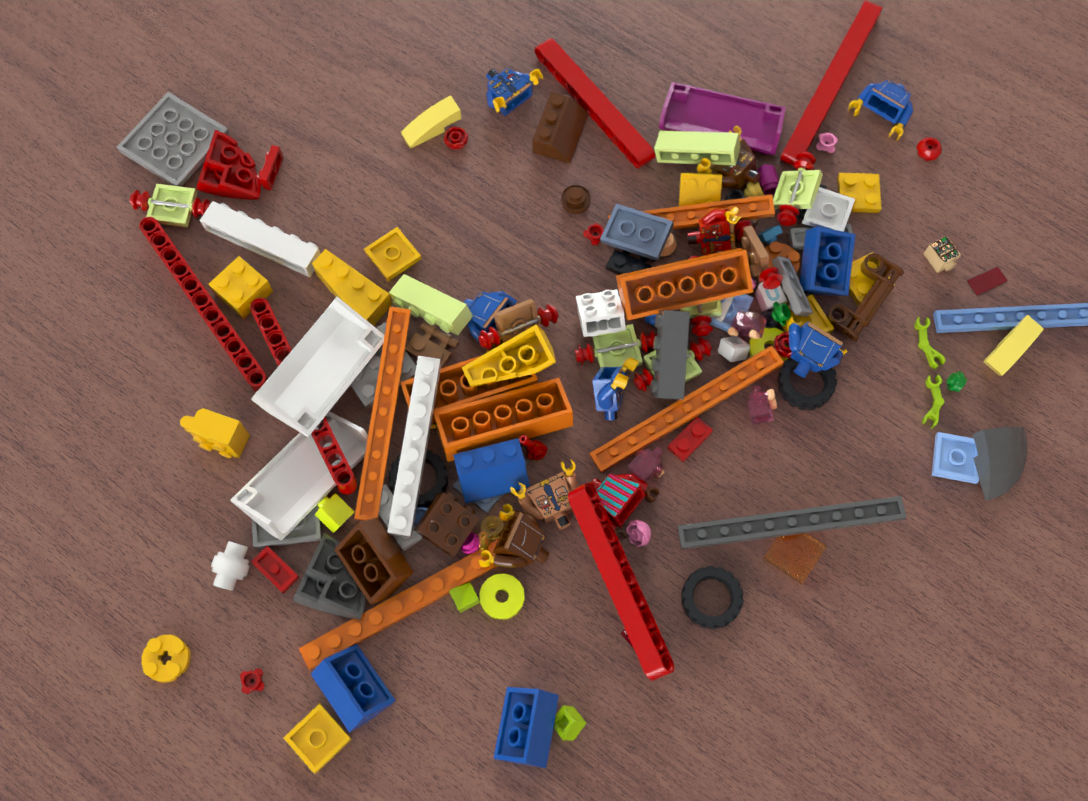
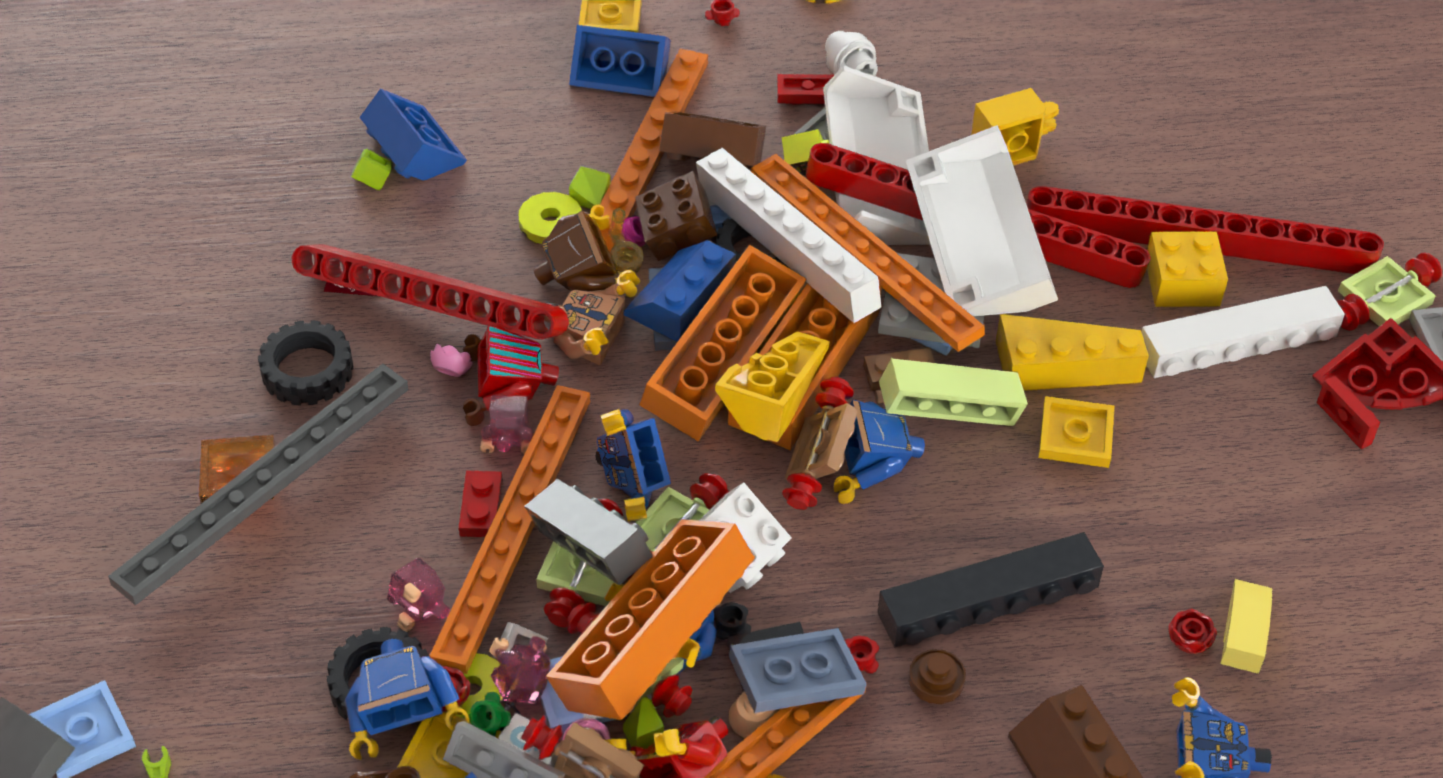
camera: 135 degrees right, 20 degrees down
(329, 584) = (742, 101): dark grey brick -> none
(514, 214) = (989, 589): none -> black brick
(535, 449) = (657, 353): red plate -> none

